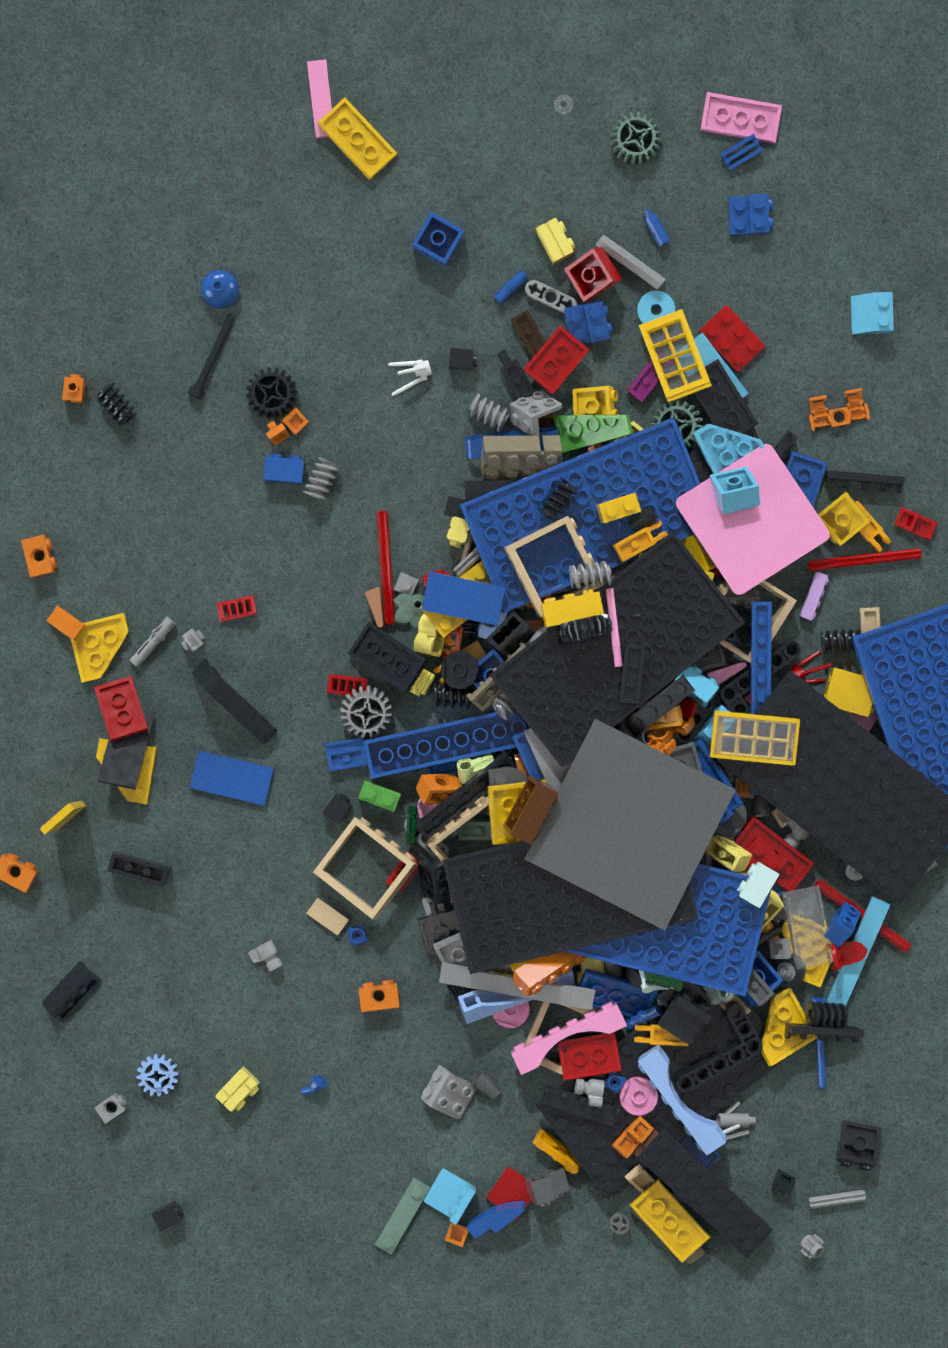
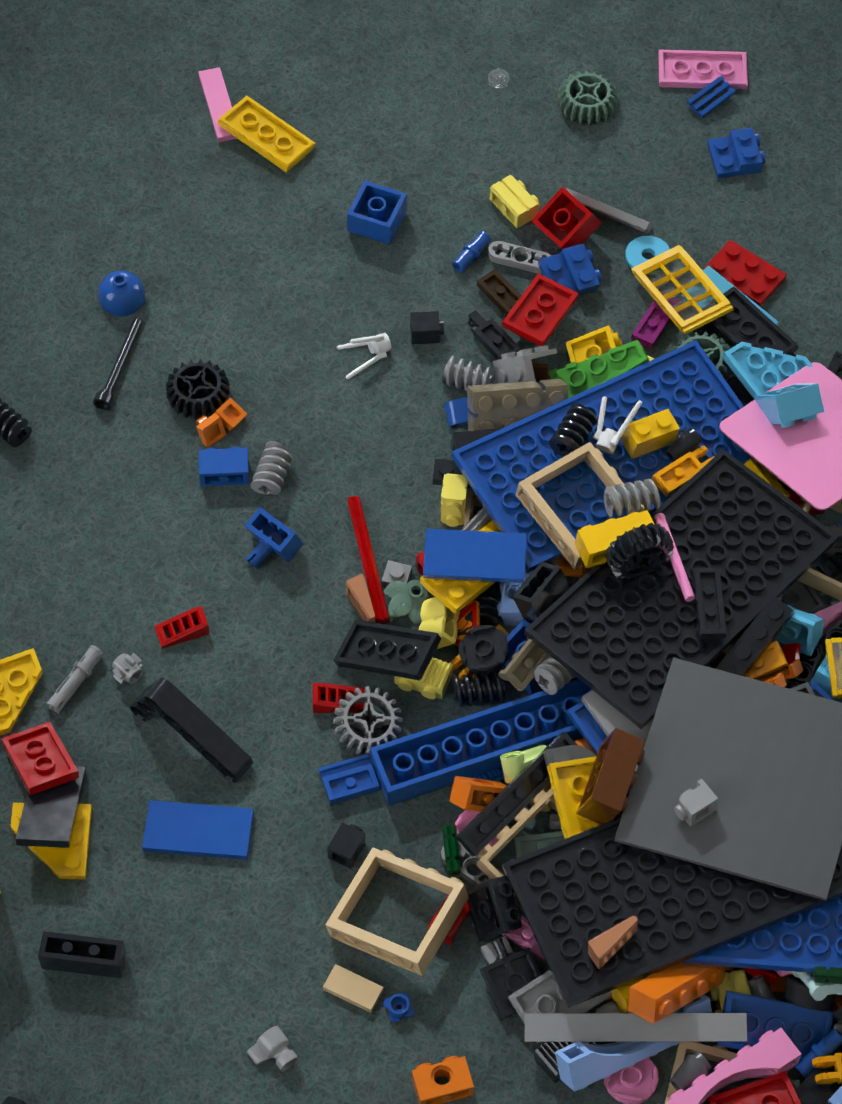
camera: 10 degrees left, 30 degrees down
(314, 543) = (272, 538): none -> blue brick
(379, 796) = (402, 821): bright green brick -> none
(502, 940) = (608, 943): none -> nougat slope
(549, 1021) = (689, 1070): none -> dark grey cone
(585, 511) = (609, 438): none -> white plant
(585, 846) = (696, 803): none -> light grey brick
(656, 228) = (630, 178): blue cylinder -> none

